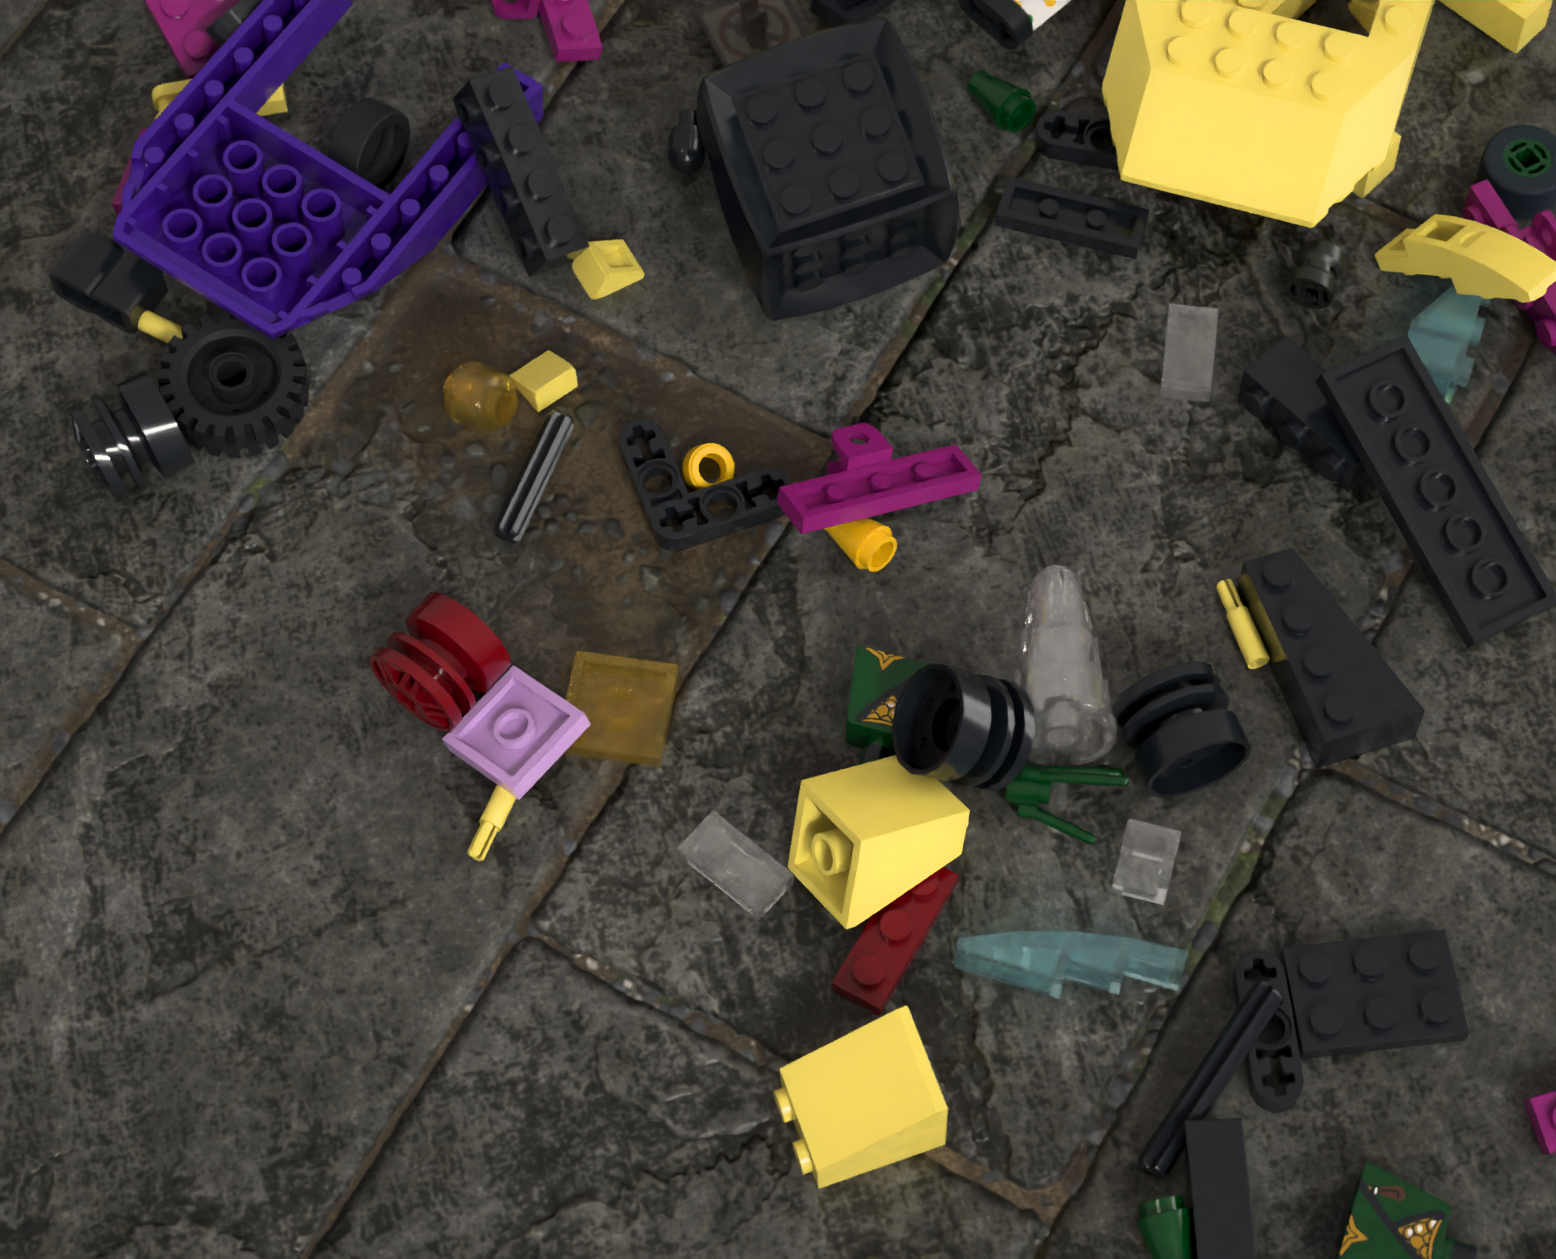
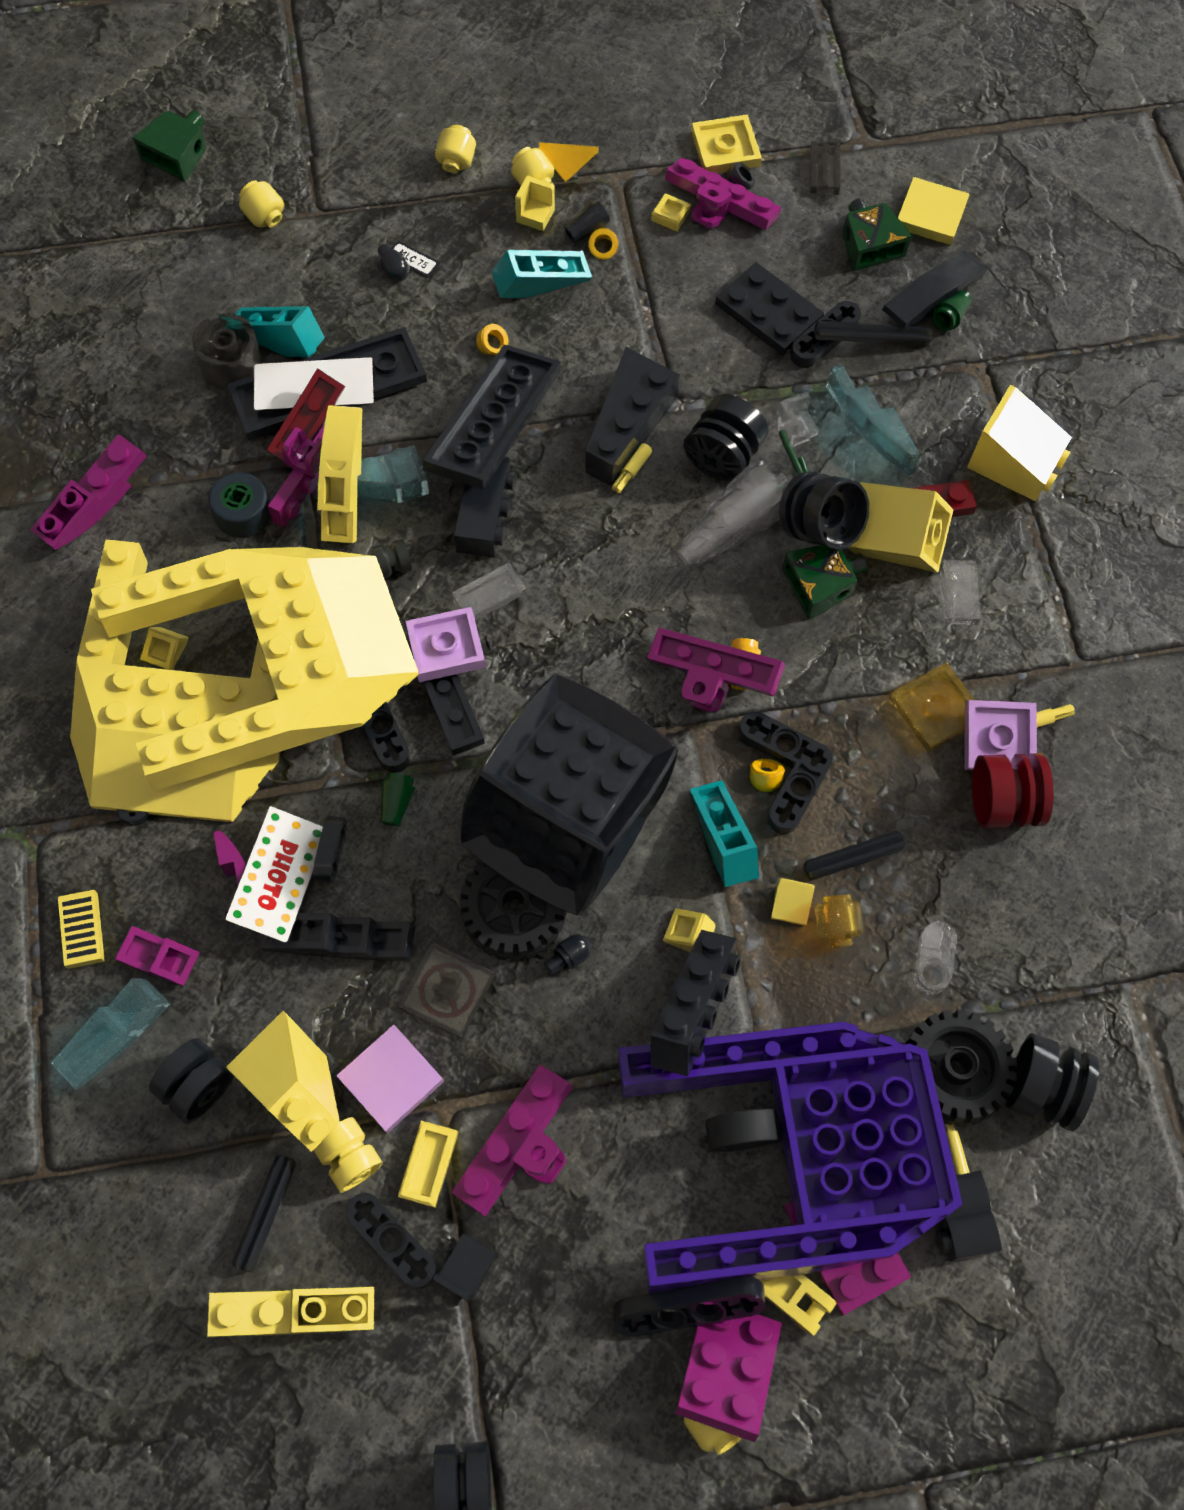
camera: 135 degrees left, 5 degrees up
(363, 472) = (935, 949): none -> clear piece
(676, 362) = (725, 833): none -> teal slope
(1146, 246) = (445, 644): none -> lavender tile

